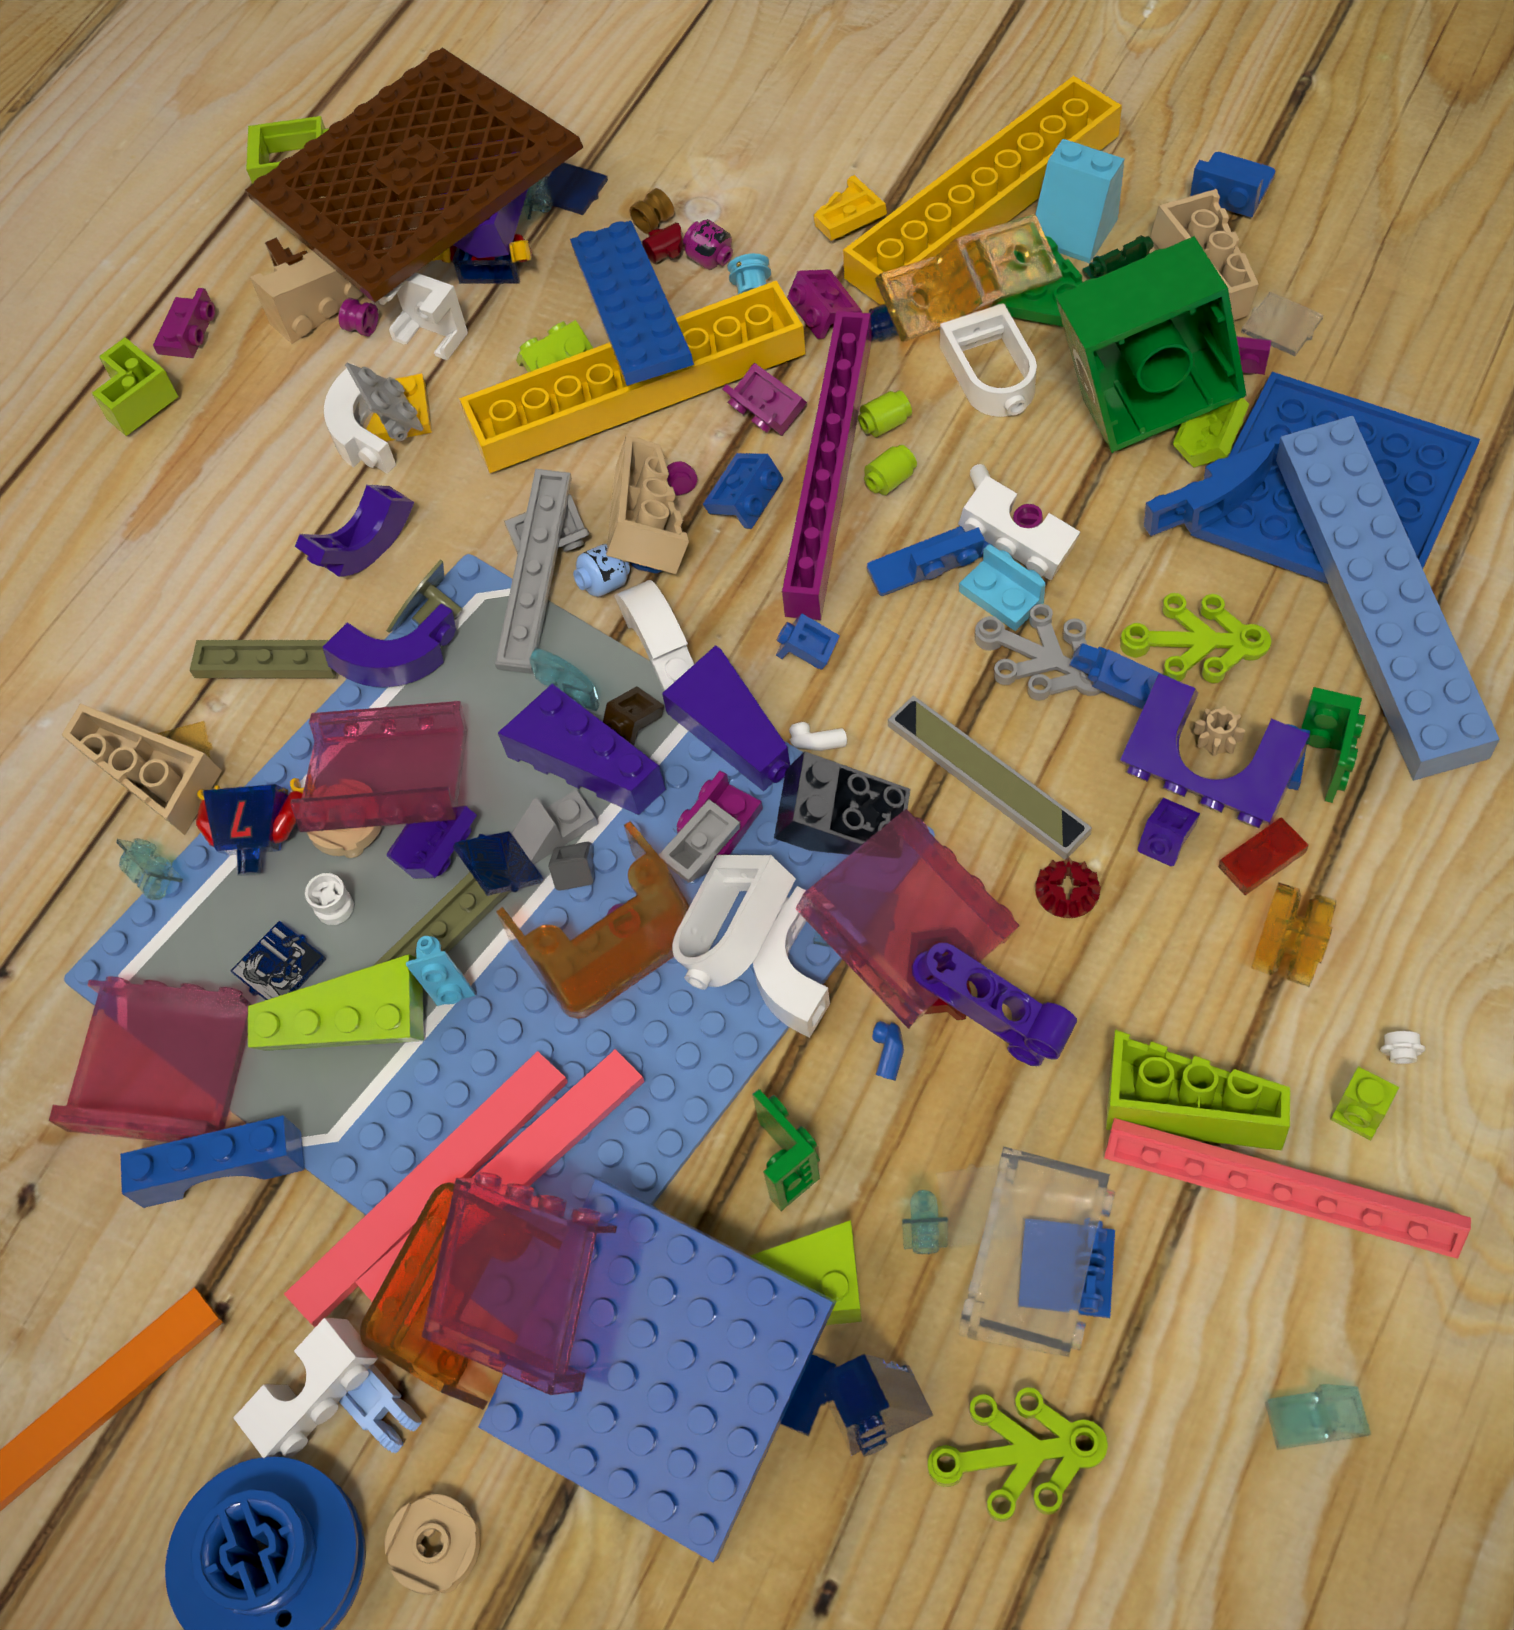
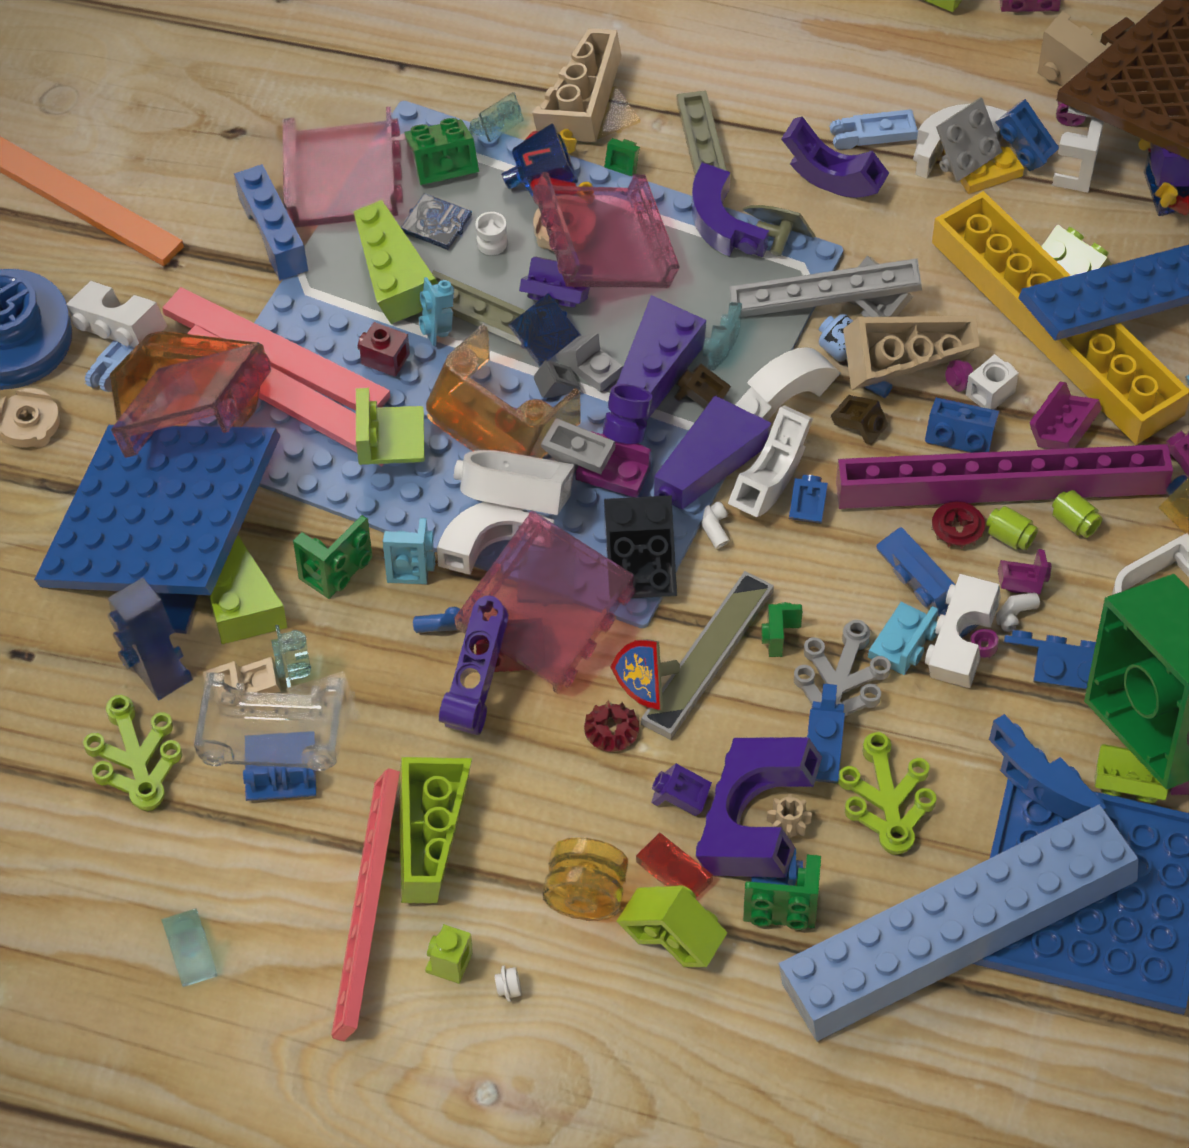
camera: 70 degrees right, 5 degrees down
(173, 931) = (442, 150): none -> green bracket
(260, 741) = (622, 156): none -> green tile
(316, 491) = (874, 129): none -> light blue hinge
(389, 355) = (1027, 135): none -> blue bracket
(472, 1047) = (384, 349): none -> dark red brick
(613, 1055) = (388, 433): none -> lime bracket
(672, 779) = (628, 411): none -> dark purple wheel
(701, 450) = (992, 383): none -> white brick
(708, 575) = (861, 415): none -> dark brown bracket
(772, 678) = (770, 474): none -> white arch
(800, 1057) = (409, 555): none -> medium azure bracket
(858, 509) = (966, 515): none -> dark red gear
(931, 1300) = (257, 676): none -> tan slope
(952, 467) = (1024, 577): none -> magenta bracket
(972, 701) = (779, 617): none -> green bracket
(1017, 837) = (640, 672): none -> shield
(1063, 454) = (1056, 660): none -> blue bracket
(1353, 857) = (676, 921): none -> lime brick

